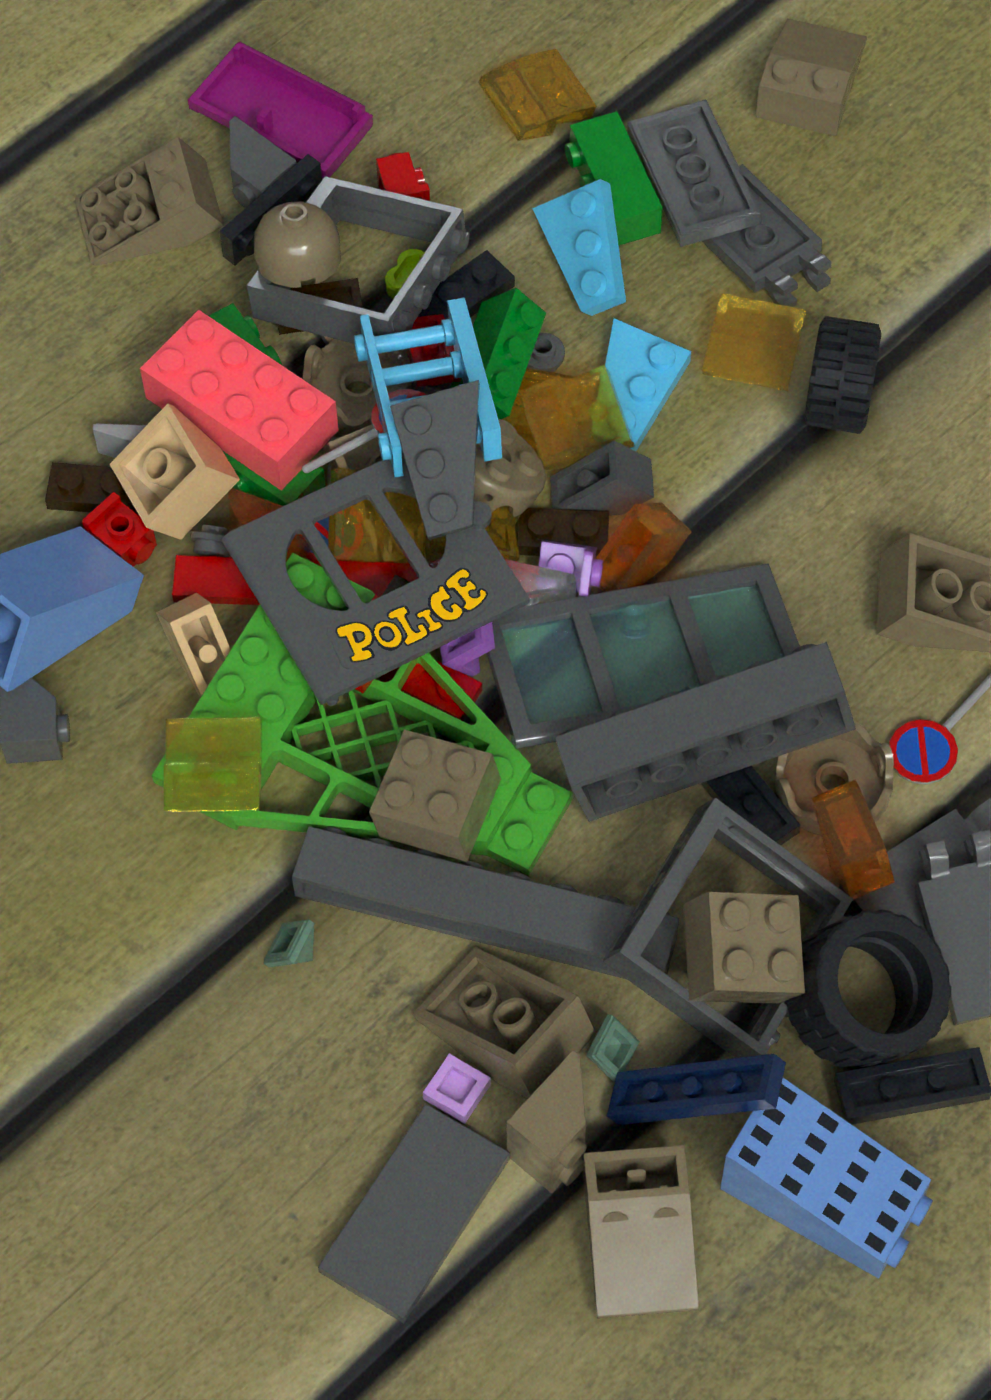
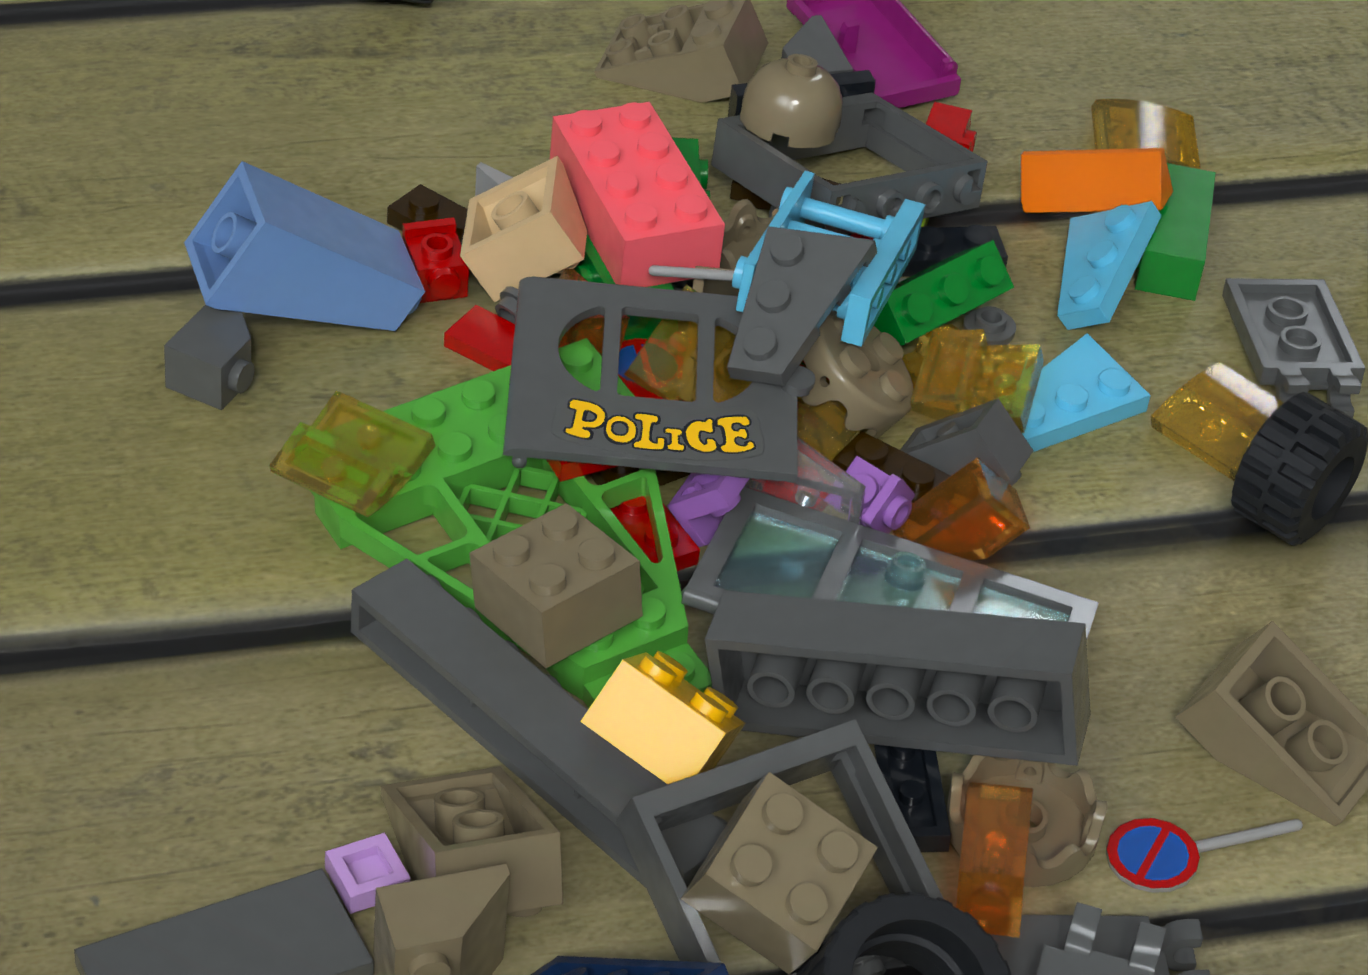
camera: 25 degrees right, 20 degrees down
(195, 639) = (433, 359): tan slope -> none
(292, 944) = (307, 666): sand green slope -> none
(539, 173) = (1093, 179): none -> orange slope
(578, 861) = (663, 718): none -> yellow brick
(612, 1047) = (571, 925): sand green slope -> none
(694, 173) = (1264, 262): dark grey tile -> none

